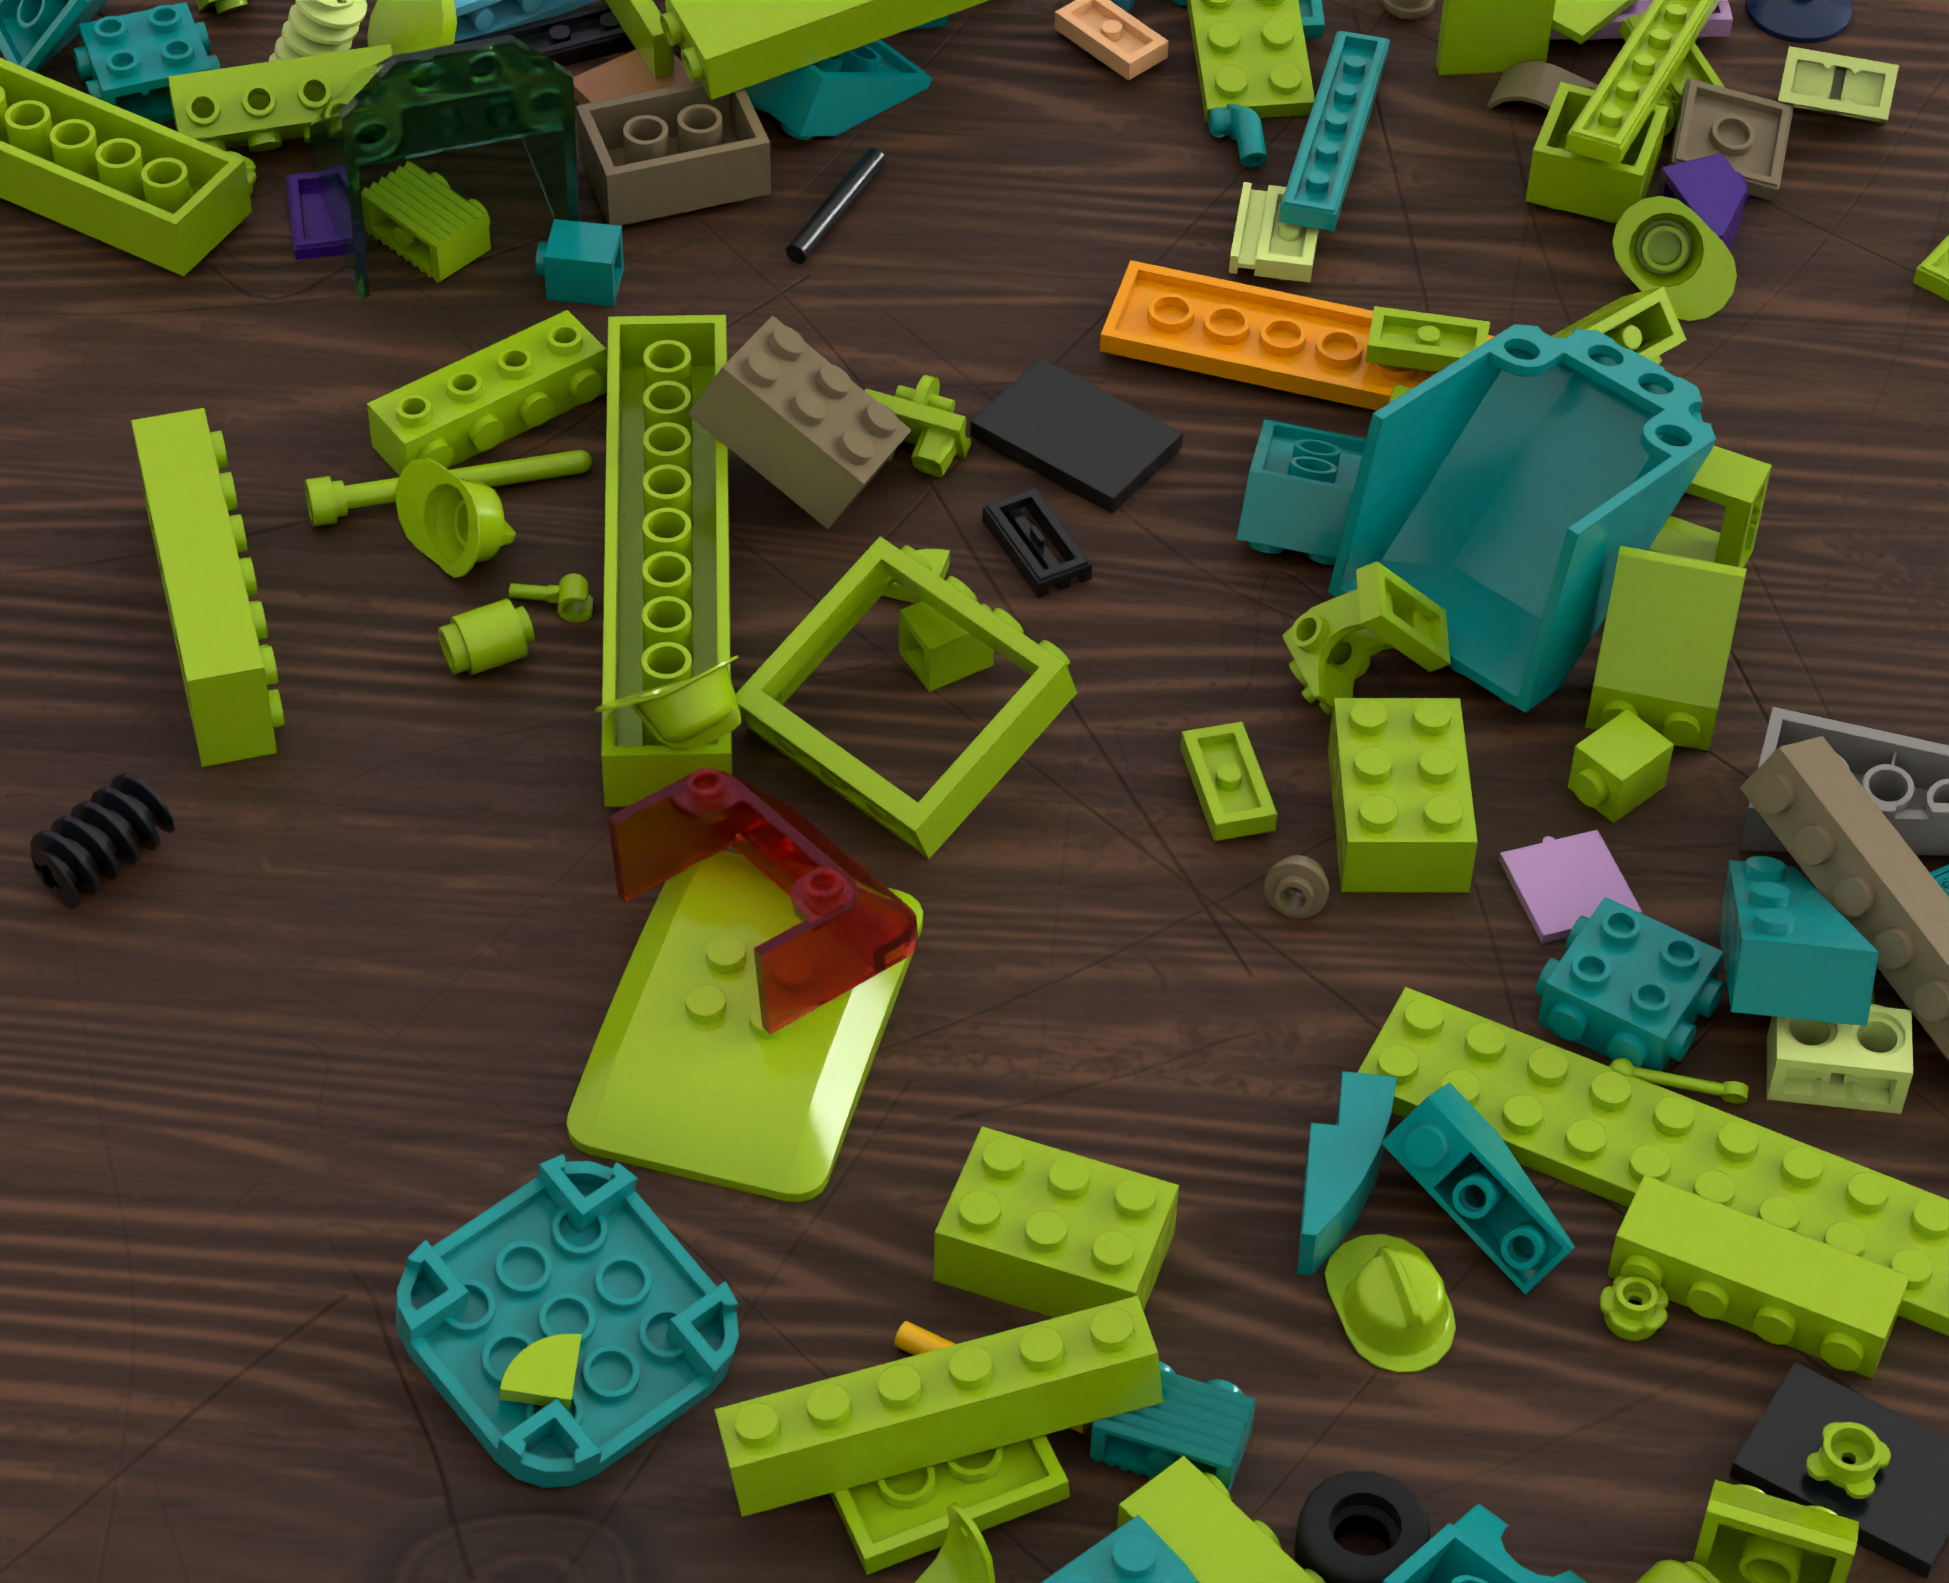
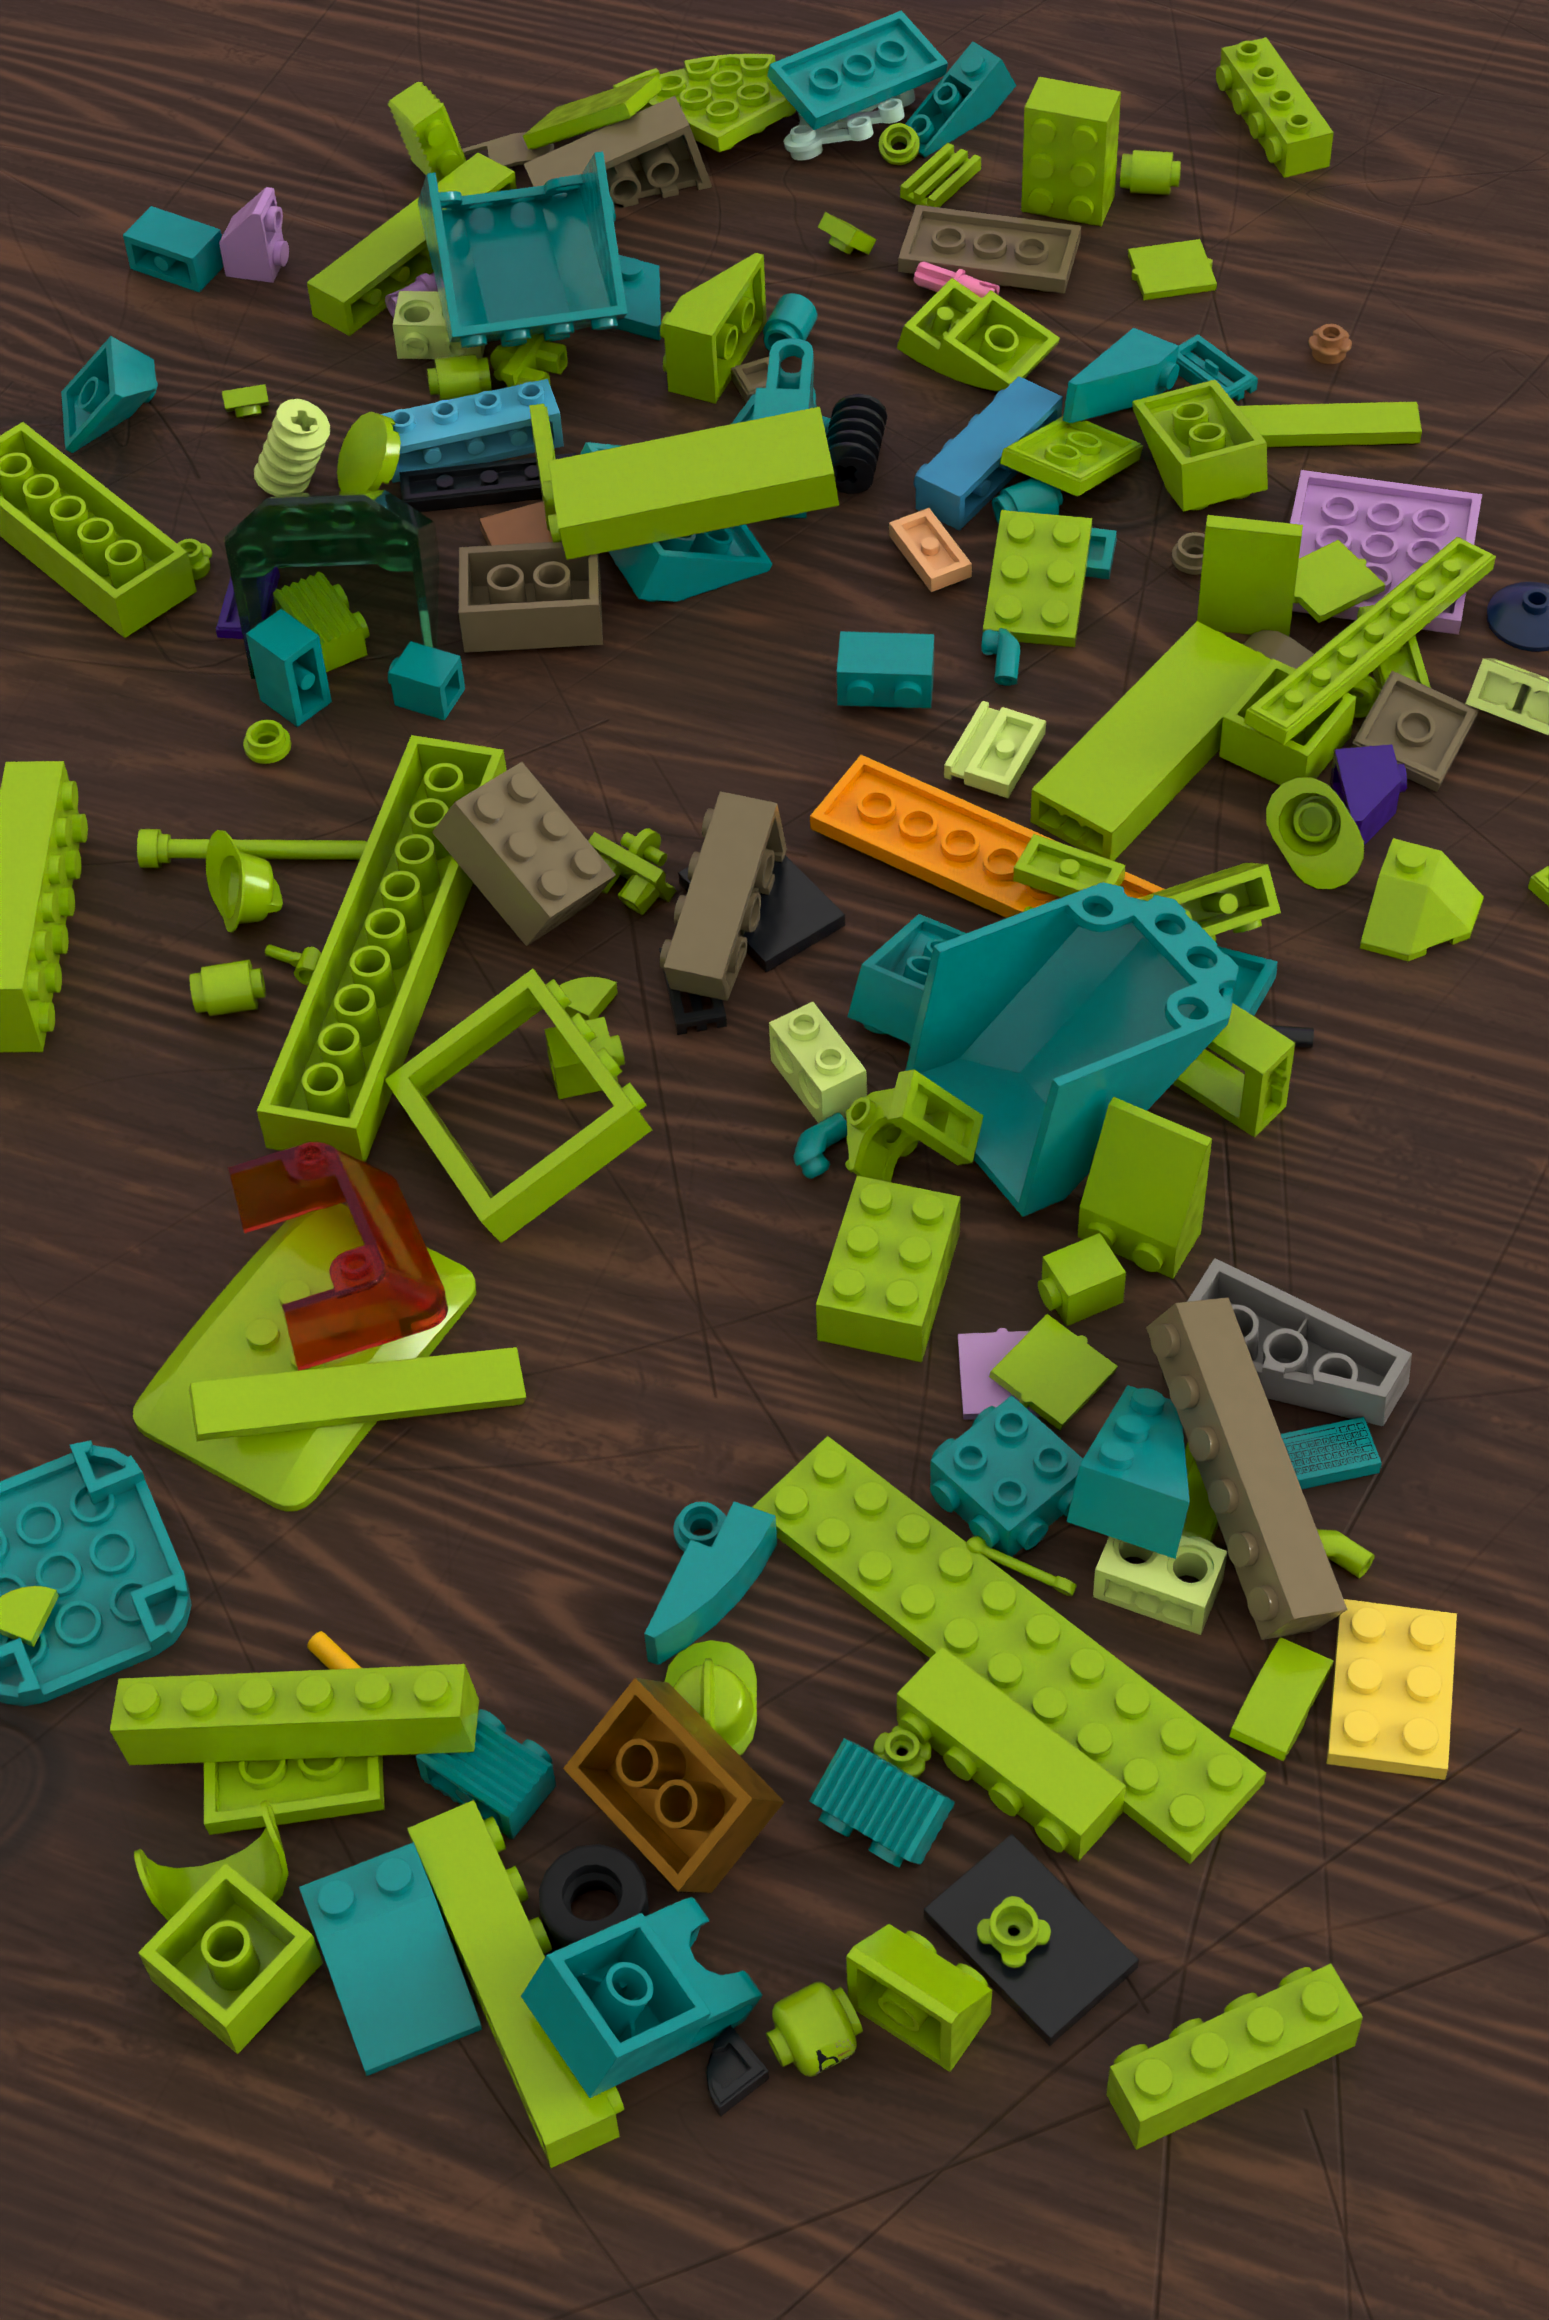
camera: 20 degrees right, 5 degrees up
(136, 53) = (161, 456): teal brick -> none
(264, 100) = (220, 500): lime brick -> none
(412, 359) = (266, 742): none -> lime plate
(418, 270) = (289, 667): none -> teal brick
(490, 395) = (311, 788): lime brick -> none
(689, 710) = (326, 1087): lime piece -> none
(835, 205) = (650, 663): black bar -> none
(846, 1046) = (356, 1393): none -> lime tile
(1051, 429) = (723, 895): none -> dark tan wedge
(1052, 1228) = (460, 1586): lime brick -> none
(1121, 166) = (885, 669): none -> teal brick
(1226, 595) = (816, 1062): none -> yellowish green brick
(1228, 781) = (757, 1226): lime plate -> none
(1252, 682) = (815, 1141): none -> teal arm
(1298, 873) = (774, 1329): dark tan plate -> none
(1299, 1102) = (694, 1517): none -> teal plate
(1334, 131) = (1077, 667): teal tile -> none
(1409, 1387) = (673, 1786): none -> pearl gold brick
(1449, 194) = (1146, 744): none -> lime brick
(1480, 1185) = (809, 1618): teal slope -> none
(1625, 867) = (1053, 1371): none -> lime piece
(1641, 1359) = (881, 1803): none -> teal brick
(1810, 313) = (1419, 903): none -> lime slope

